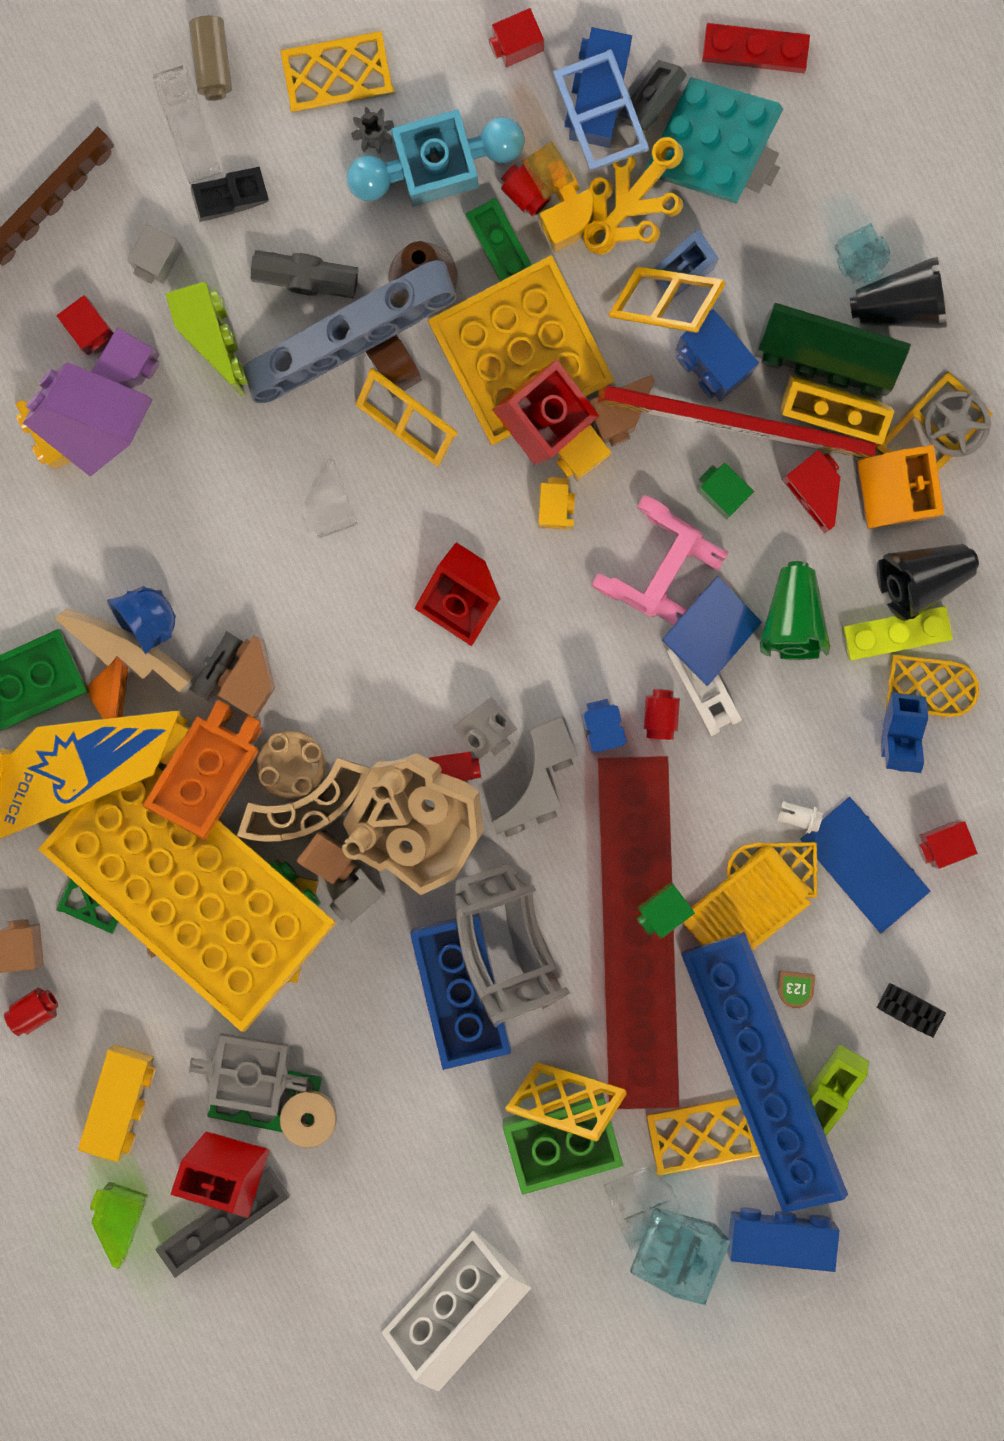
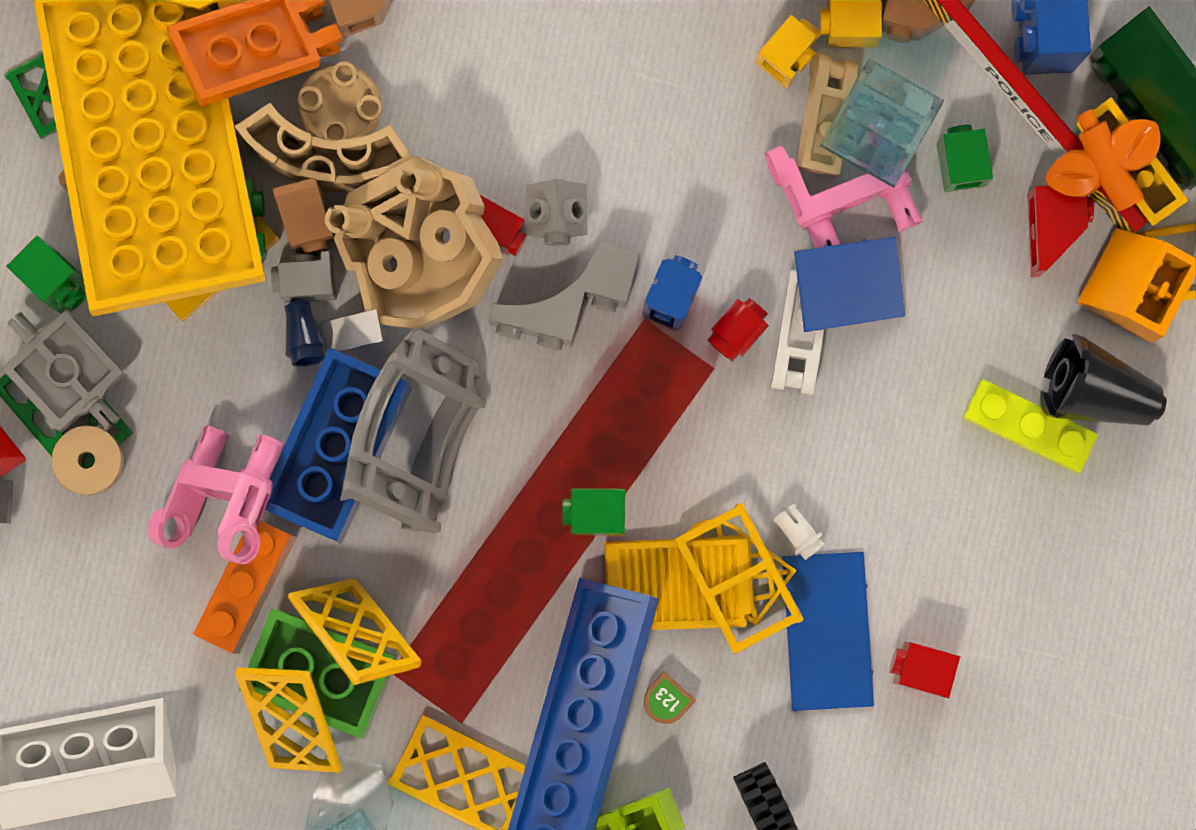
camera: 30 degrees right, 5 degrees down
(192, 1022) = (49, 275): none -> green brick
(385, 934) = (303, 337): none -> dark blue cone
(413, 907) = (352, 331): none -> white sticker
(430, 1064) = (245, 490): none -> bright pink connector
(460, 594) = (629, 63): red slope -> none
(471, 1122) = (244, 591): none -> orange brick
(545, 1175) = (255, 702): none -> yellow window
(613, 529) = (820, 111): none -> tan plate
(656, 511) = (882, 122): none -> clear light blue slope
(772, 900) = (709, 593): none -> yellow window
(796, 616) = (941, 332): green cone -> none
(822, 425) = (1106, 160): none -> orange plant
(903, 732) = (965, 524): blue brick -> none
(940, 688) = (1053, 491): yellow window -> none

